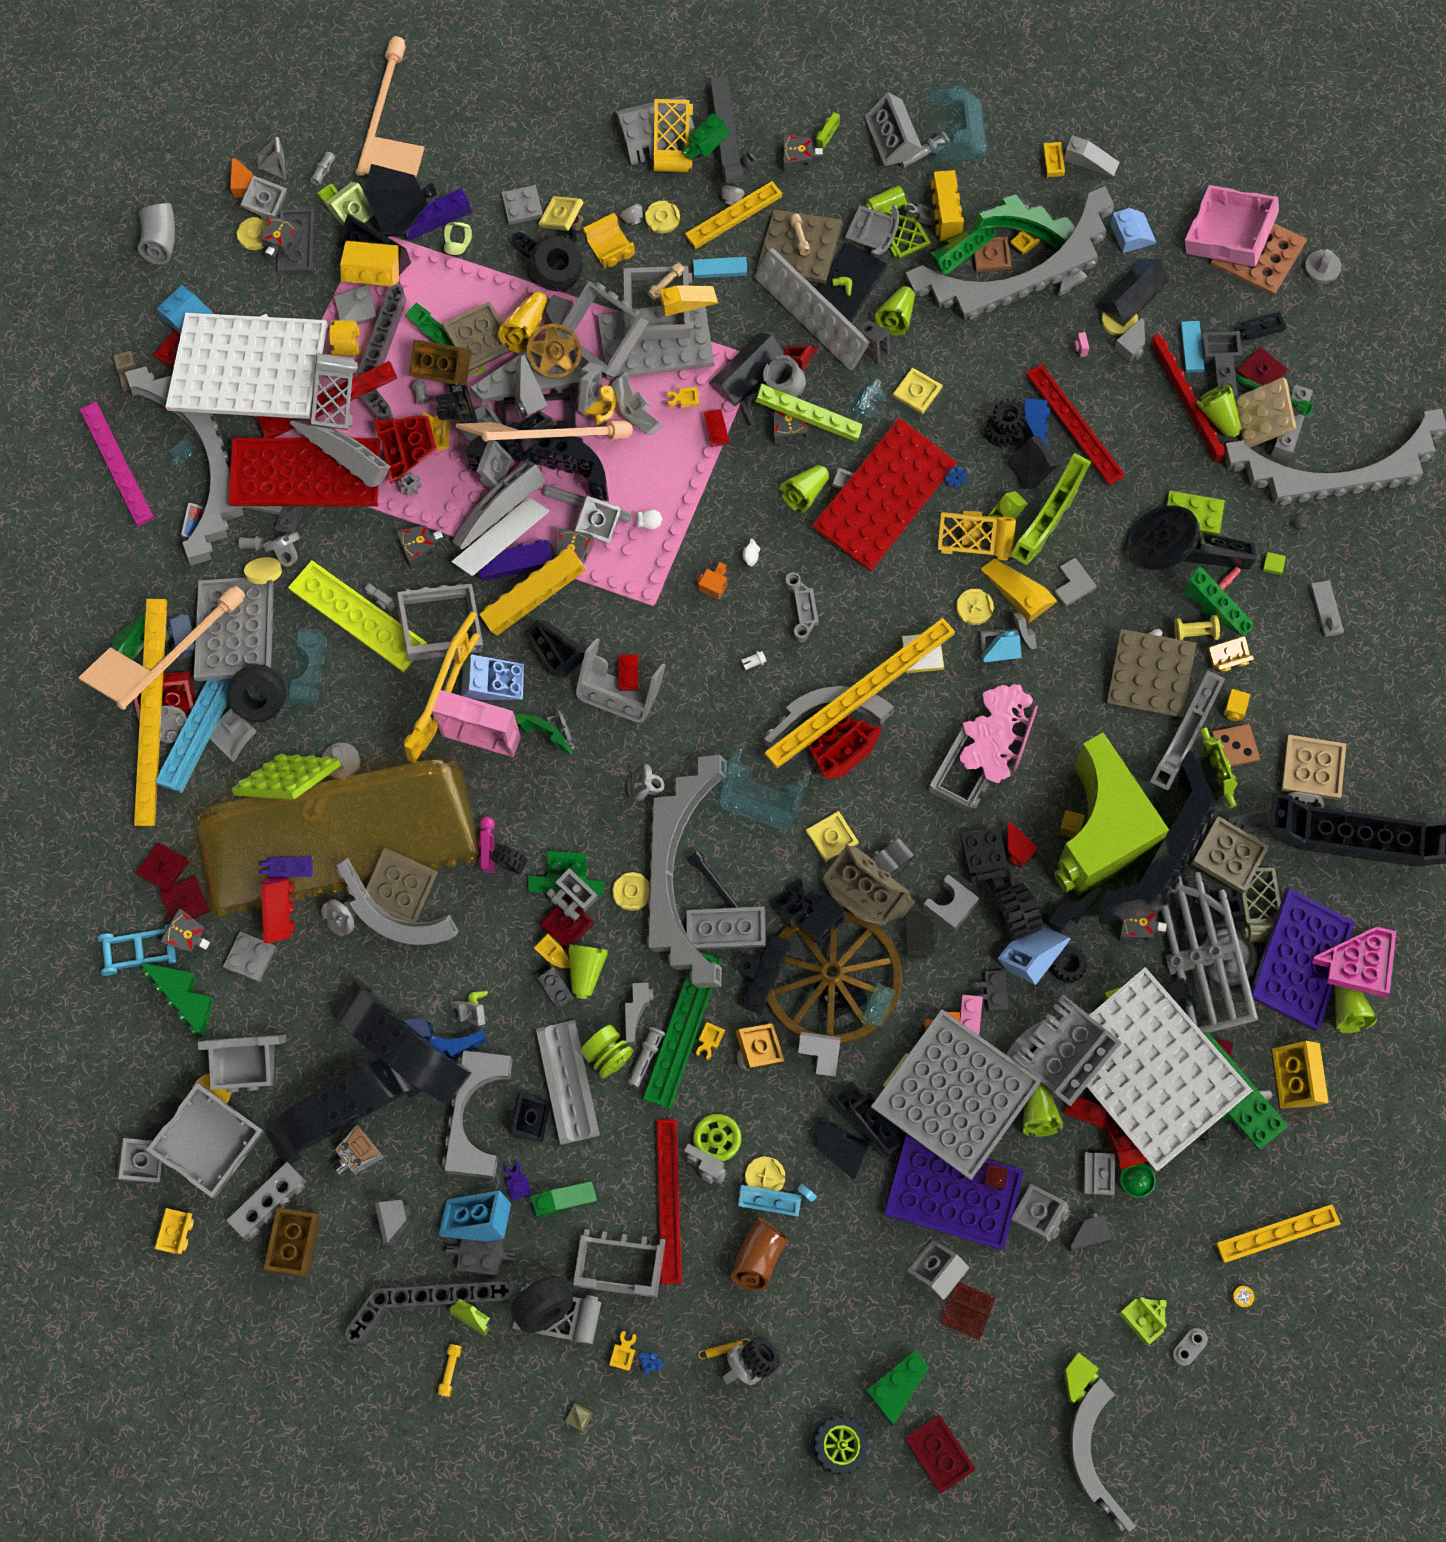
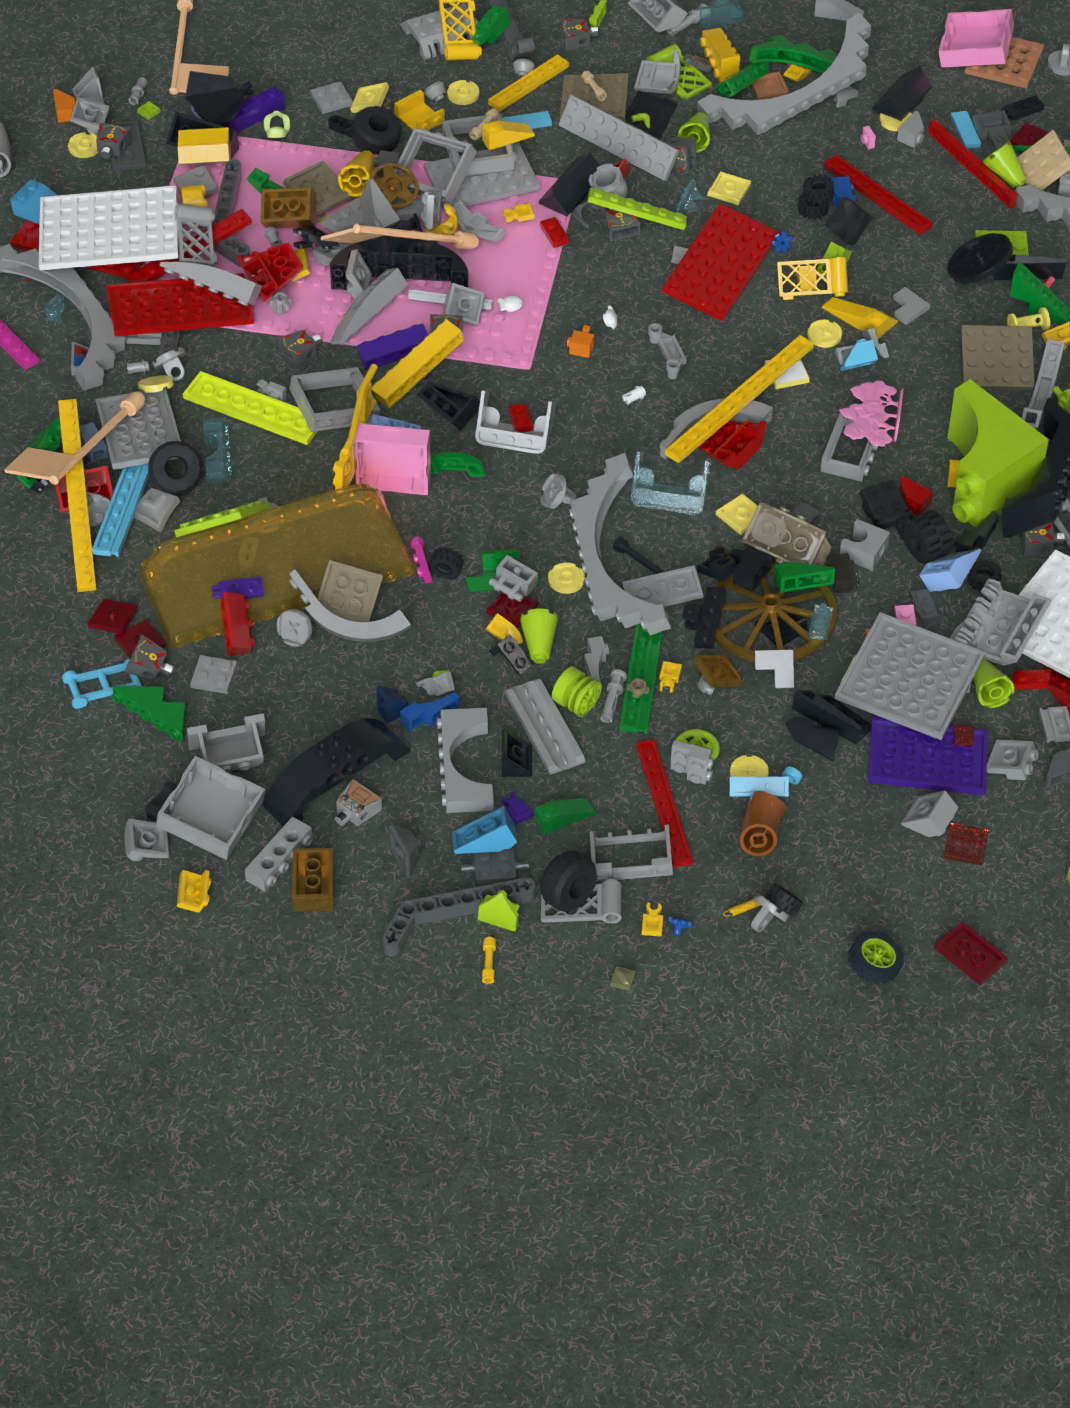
camera: 15 degrees left, 20 degrees down
(350, 201) = (164, 112): yellowish green slope -> none
(399, 1044) = (382, 702): black slope -> none
(500, 536) = (376, 329): white sticker -> none
(674, 1050) = (638, 688): none -> dark tan plate
(803, 488) = (645, 265): lime cone -> none
(869, 941) = (798, 576): none -> green slope
(897, 1386) = (916, 906): green wedge -> none
(1047, 520) = (865, 272): lime arch -> none
(1054, 159) = (805, 14): yellow plate -> none
(1131, 230) = (887, 54): light blue slope -> none

